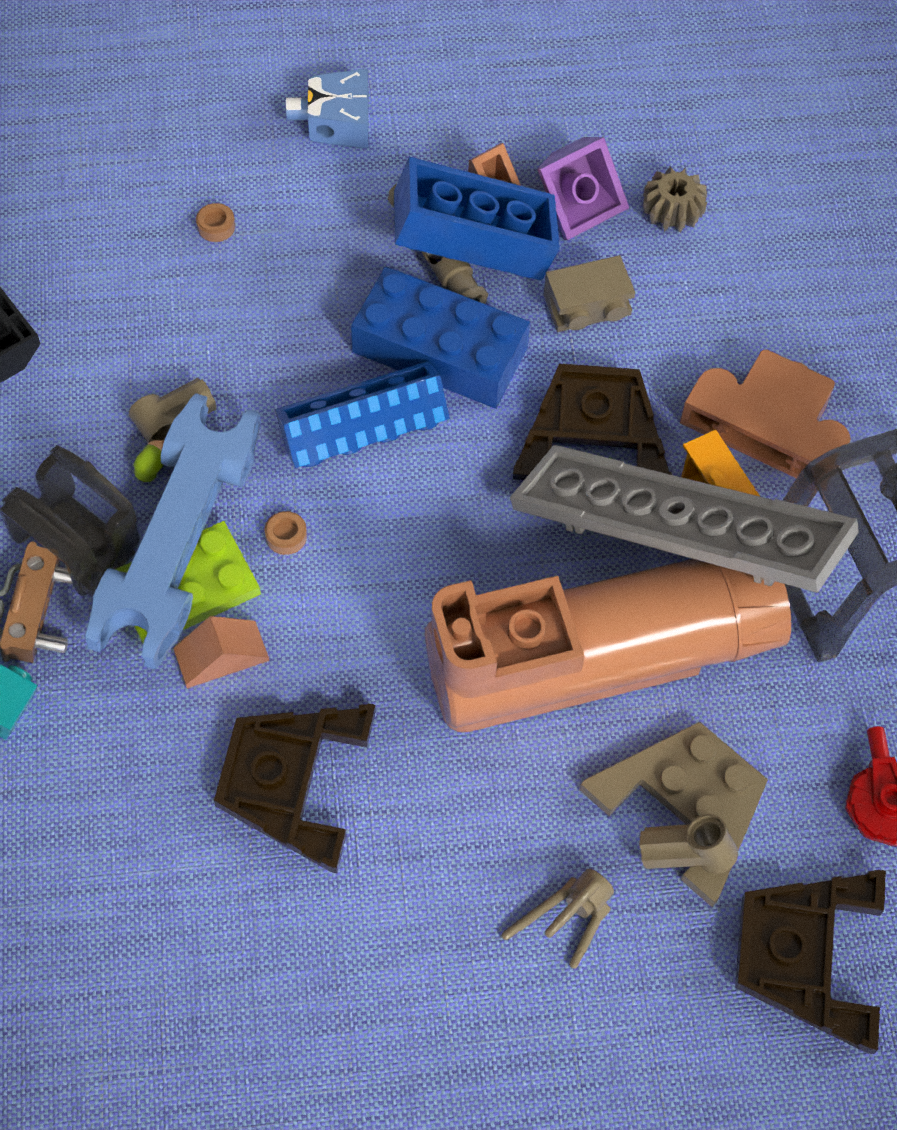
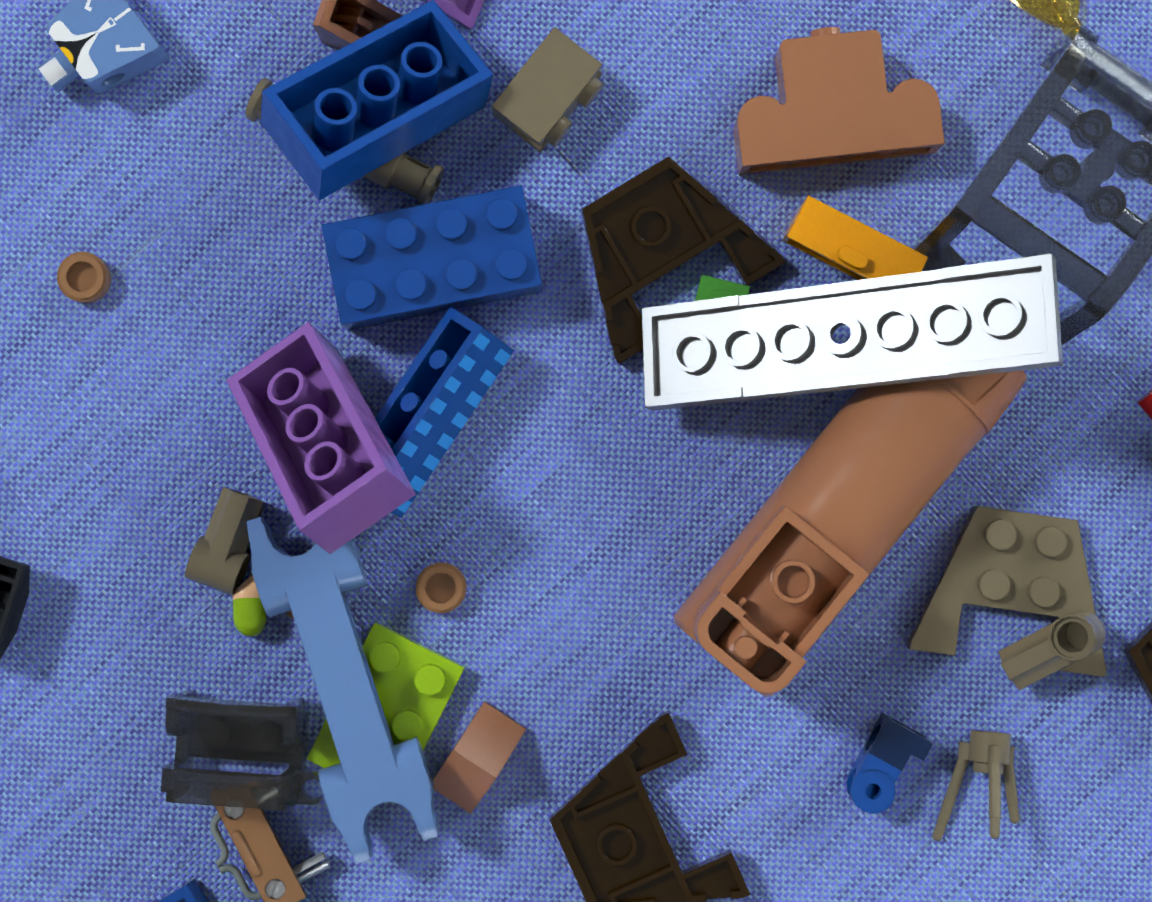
camera: 35 degrees left, 25 degrees up
(282, 371) = (319, 438): none -> medium lavender brick
(503, 845) = (881, 763): none -> leg

